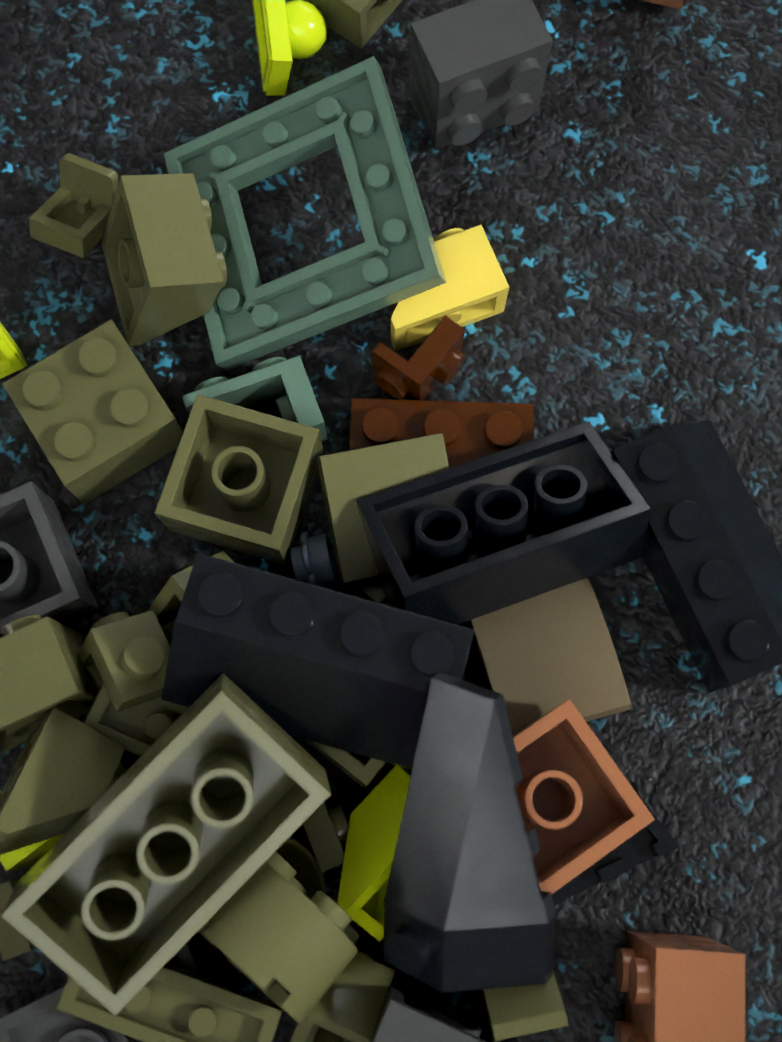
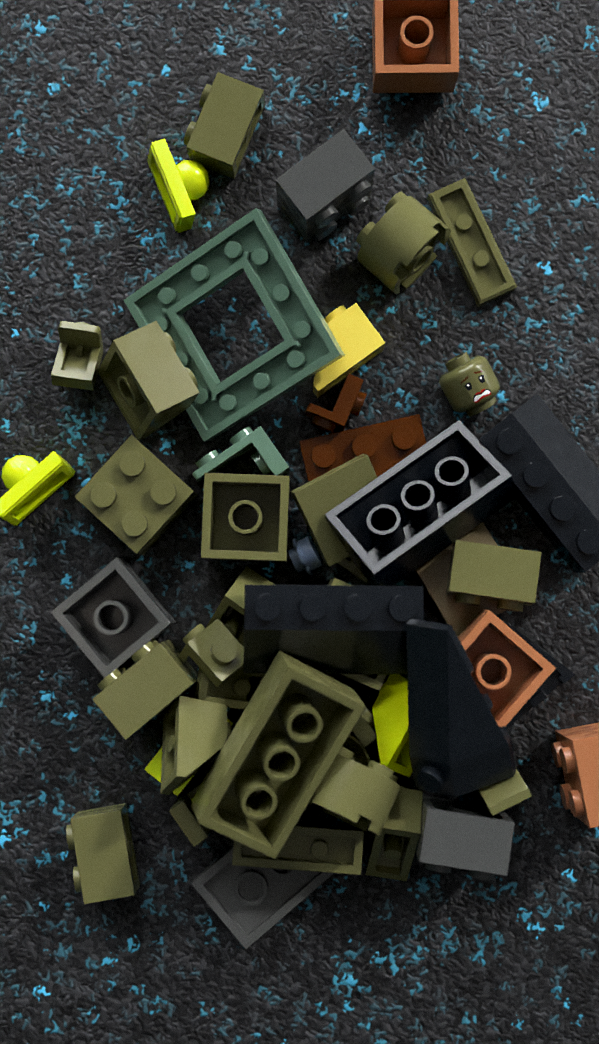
camera: 10 degrees left, 10 degrees up
(565, 163) = (401, 242): none -> olive brick
(588, 655) = (493, 574): none -> olive brick
(616, 378) = (469, 384): none -> olive head
(663, 200) = (472, 242): none -> olive tile

